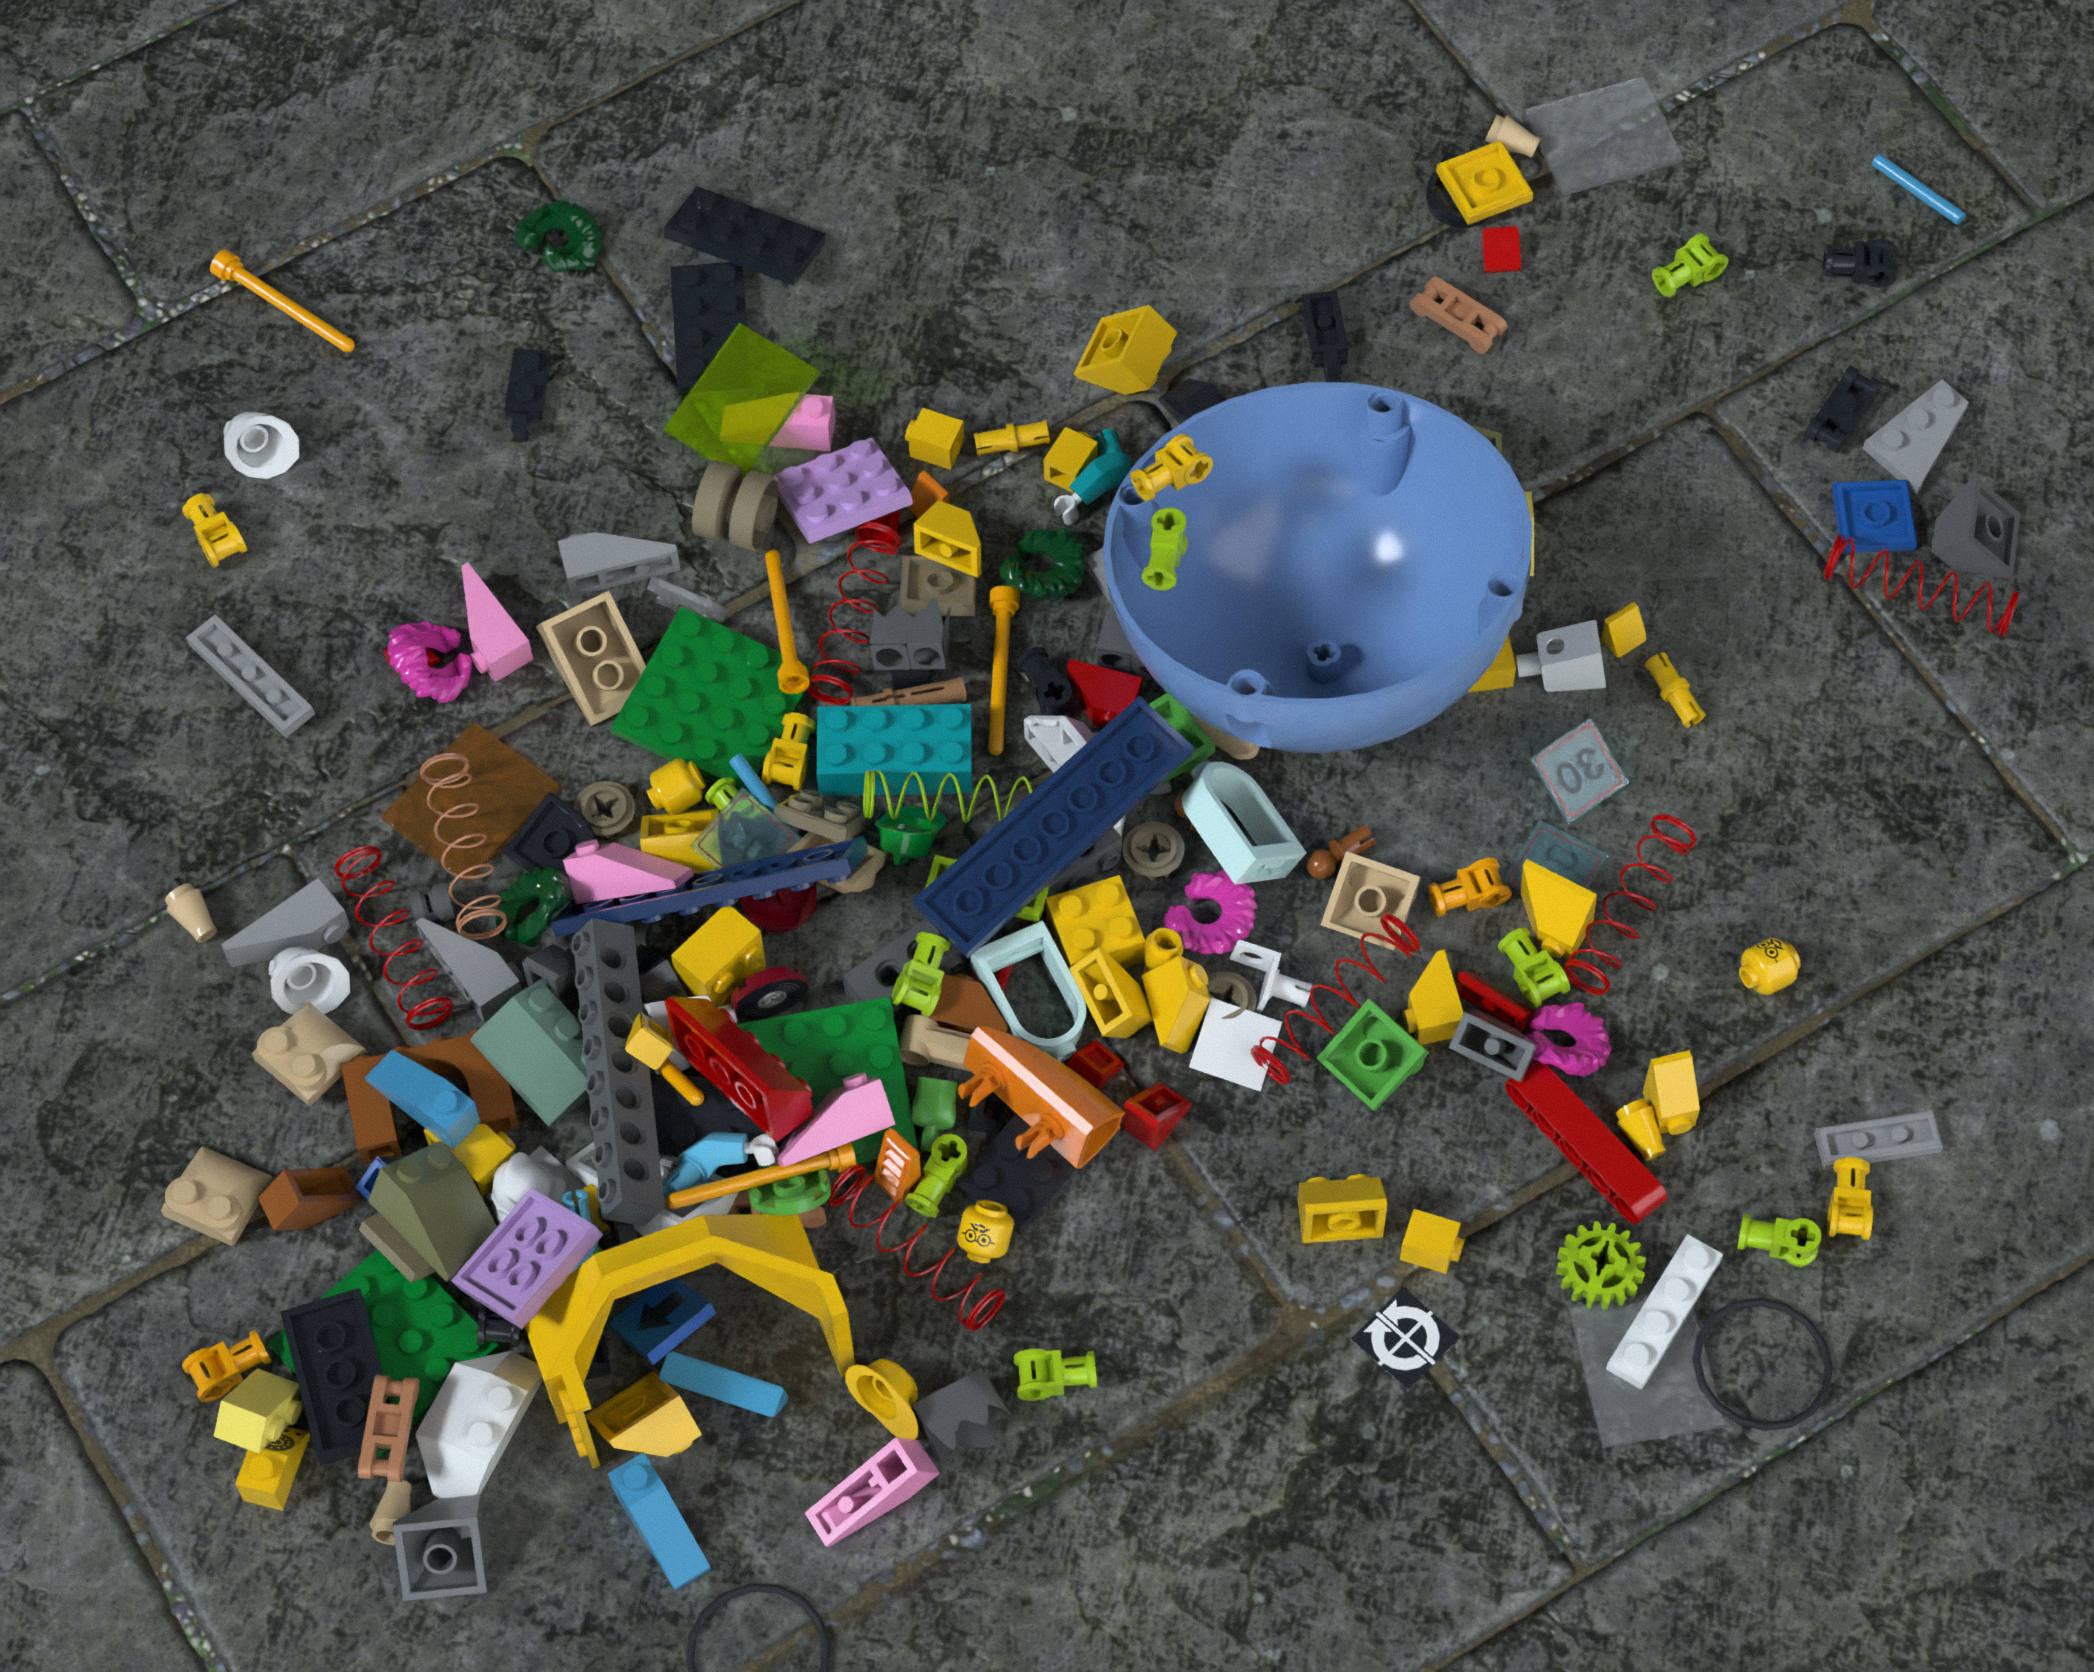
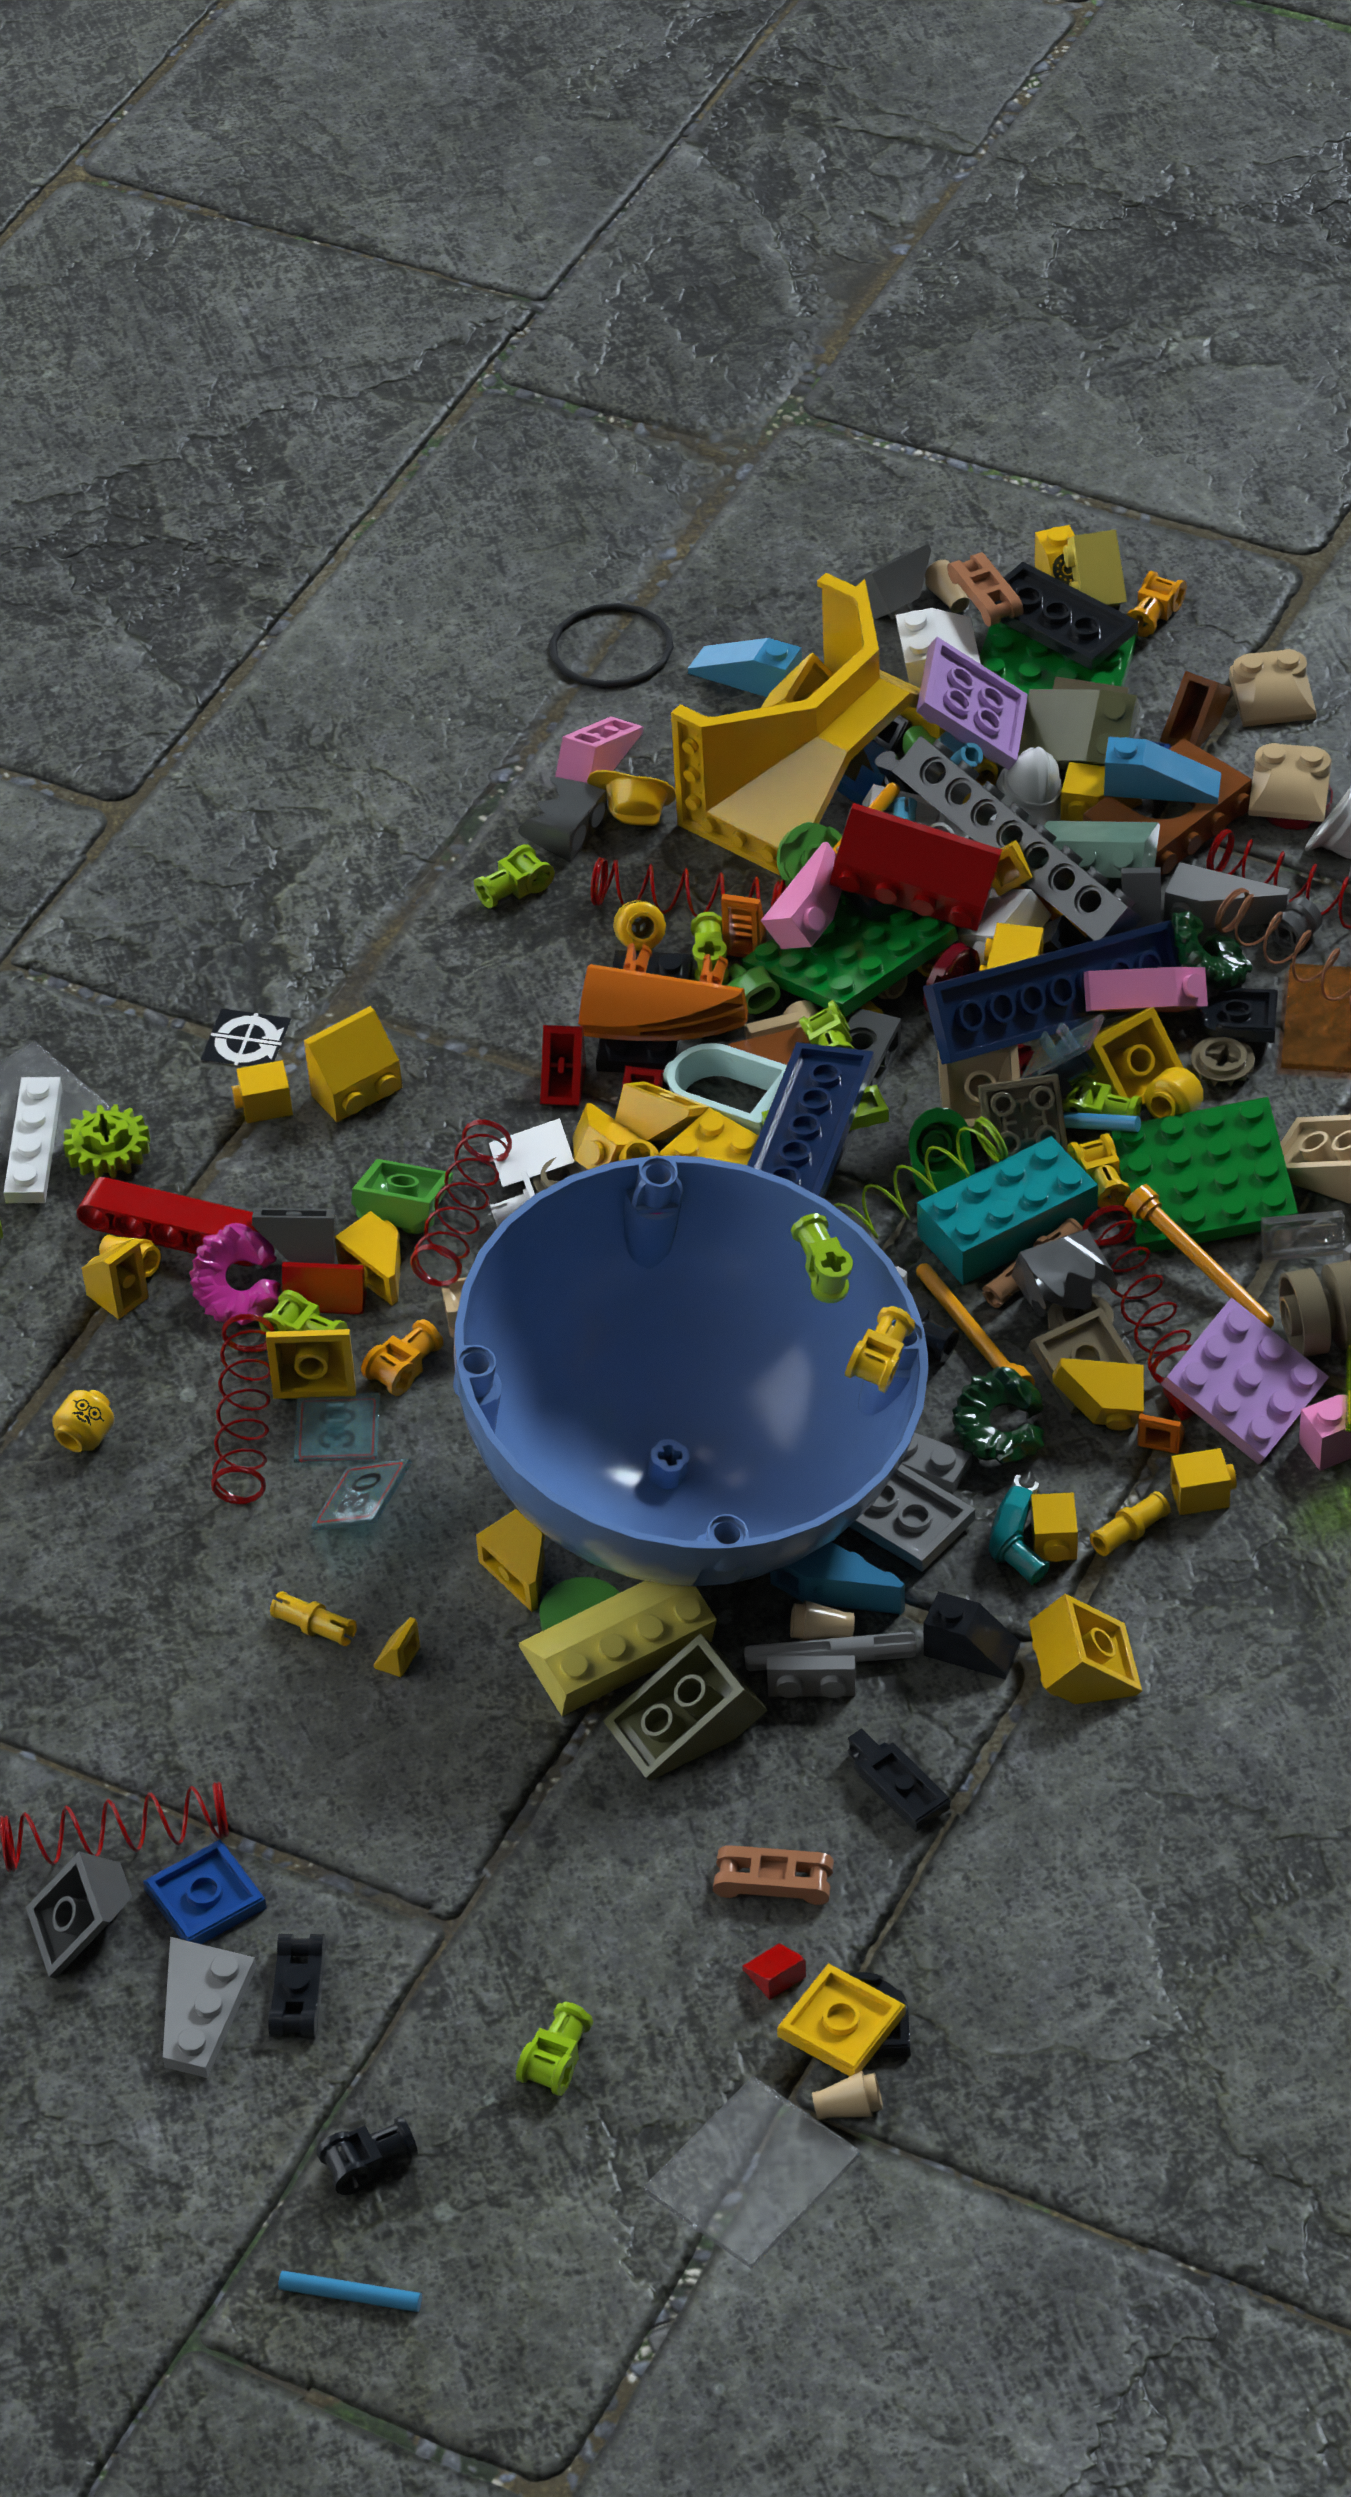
camera: 150 degrees right, 15 degrees down
(1566, 658) = (431, 1576): white torso -> none

